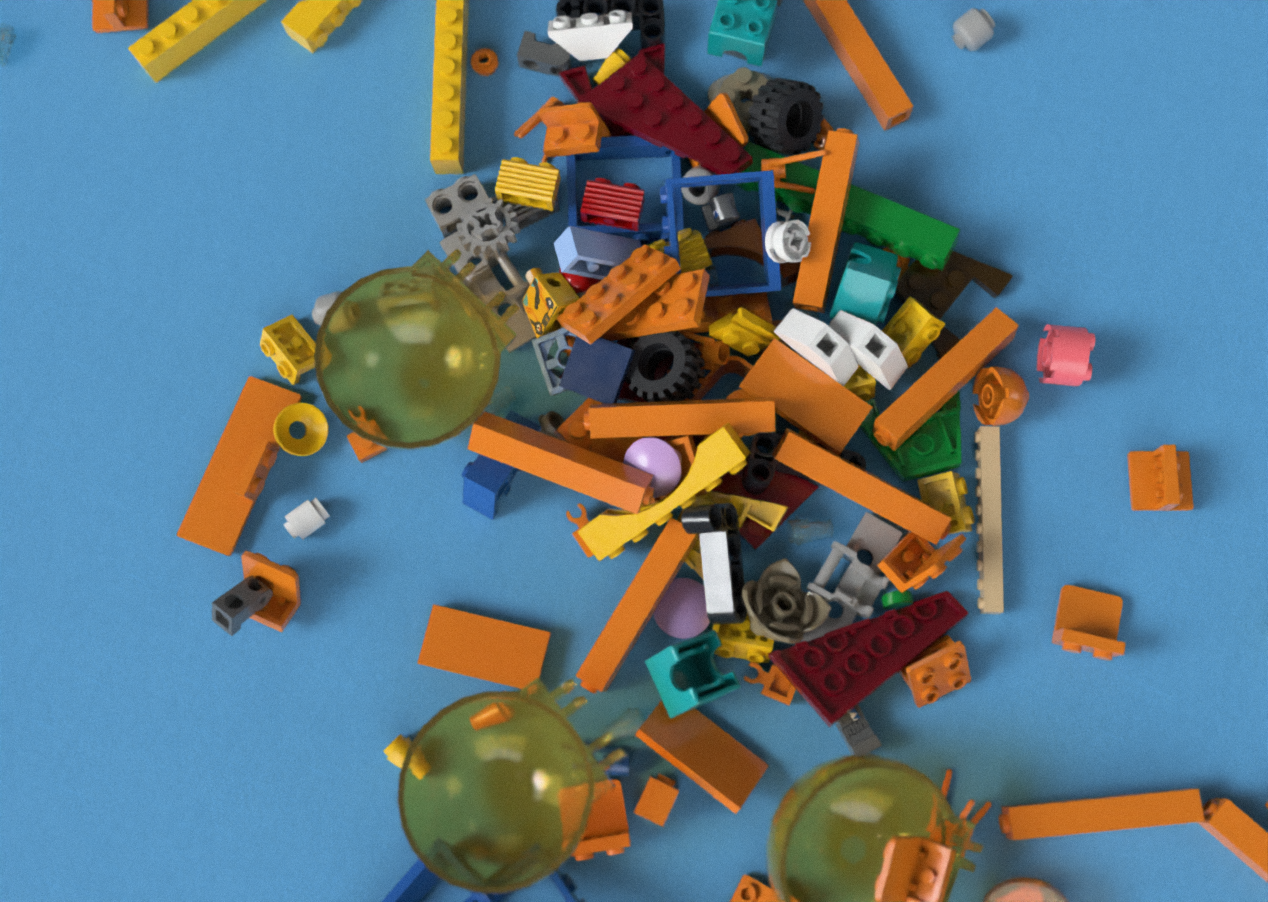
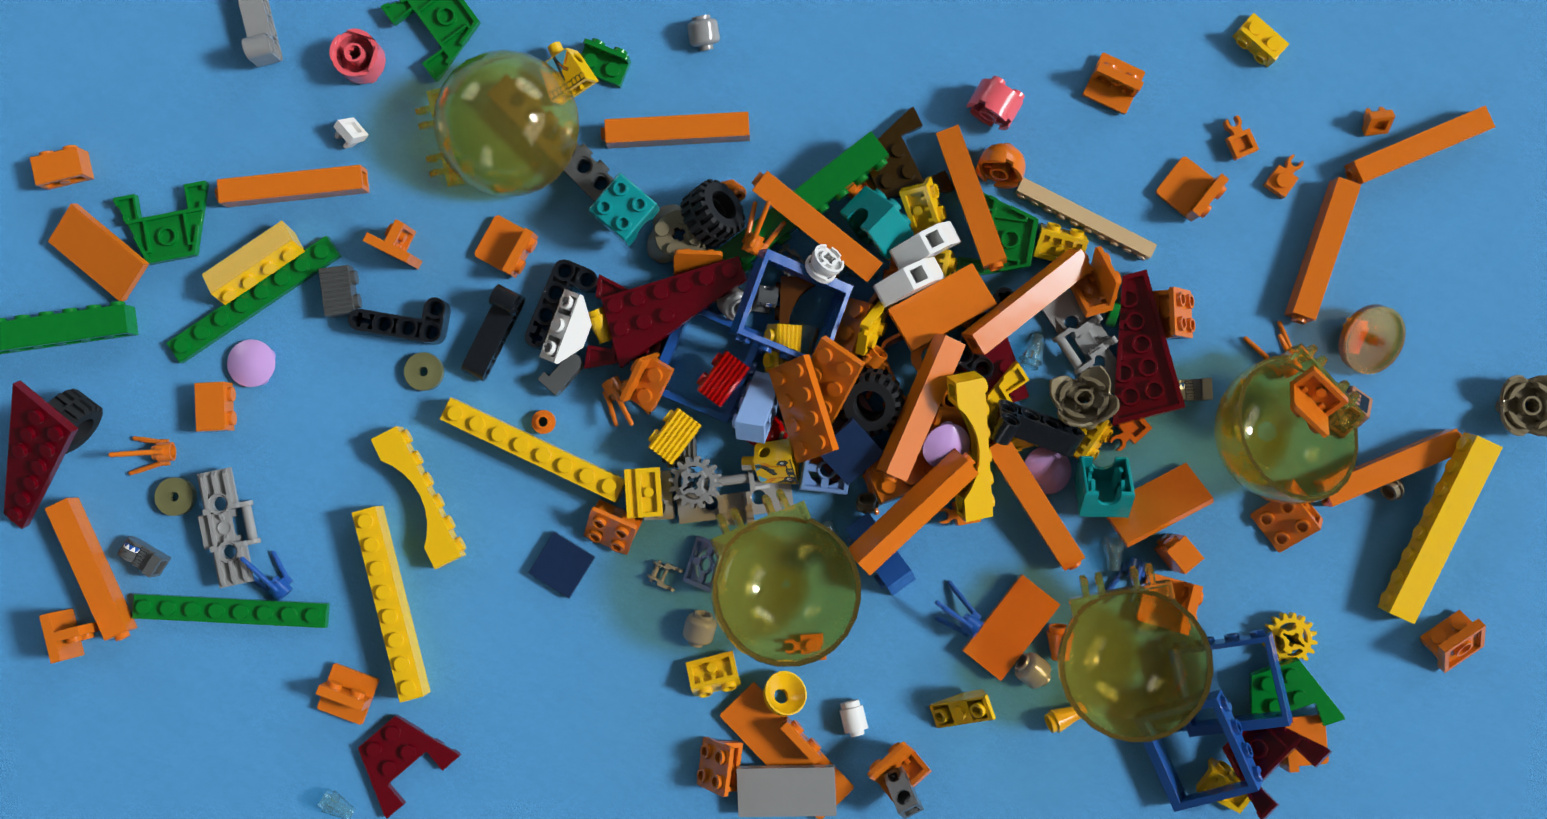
camera: 70 degrees left, 10 degrees up
(77, 73) = (393, 751): none -> dark red wing
(194, 400) = (719, 765): none -> orange bracket
(194, 481) = (786, 790): none -> light grey piece
(343, 147) = (562, 564): none -> dark blue tile
(365, 633) = (962, 709): none -> yellow slope
(368, 252) = (660, 582): none -> light grey piece
(405, 174) = (611, 527): none -> orange bracket
(443, 691) = (1032, 670): none -> light grey head
(452, 181) = (643, 492): none -> yellow plate
(465, 594) = (969, 624): none -> blue plant
(1159, 728) = (1282, 178): none -> orange plate
(1174, 656) = (1240, 142): none -> orange plate

